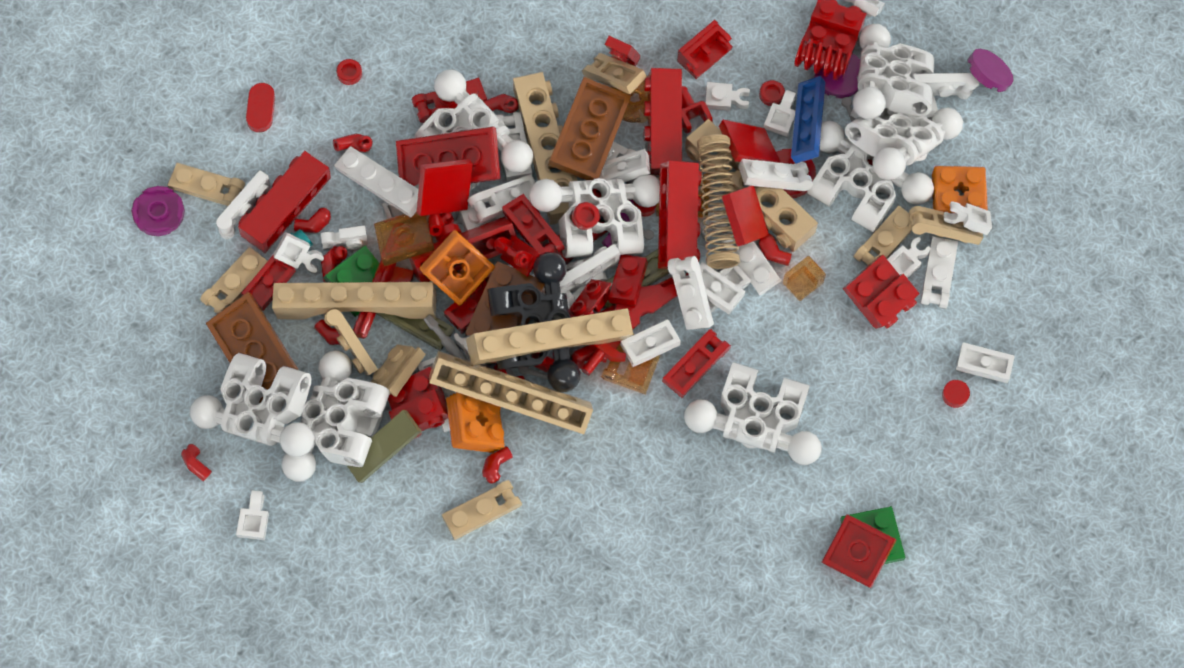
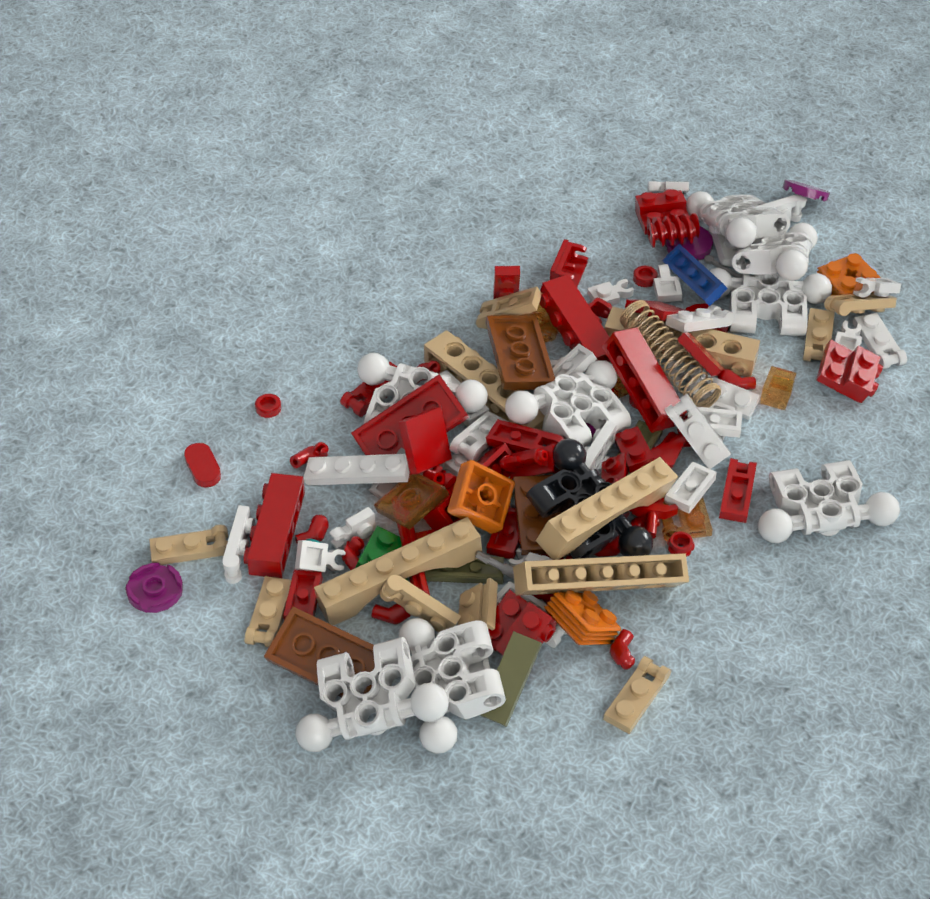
camera: 25 degrees left, 20 degrees down
(193, 464) = (324, 783): red arm -> none
(253, 521) = (424, 807): white plate -> none
(585, 216) = (569, 405): red tile -> none
(612, 385) = (683, 539): none -> red plate

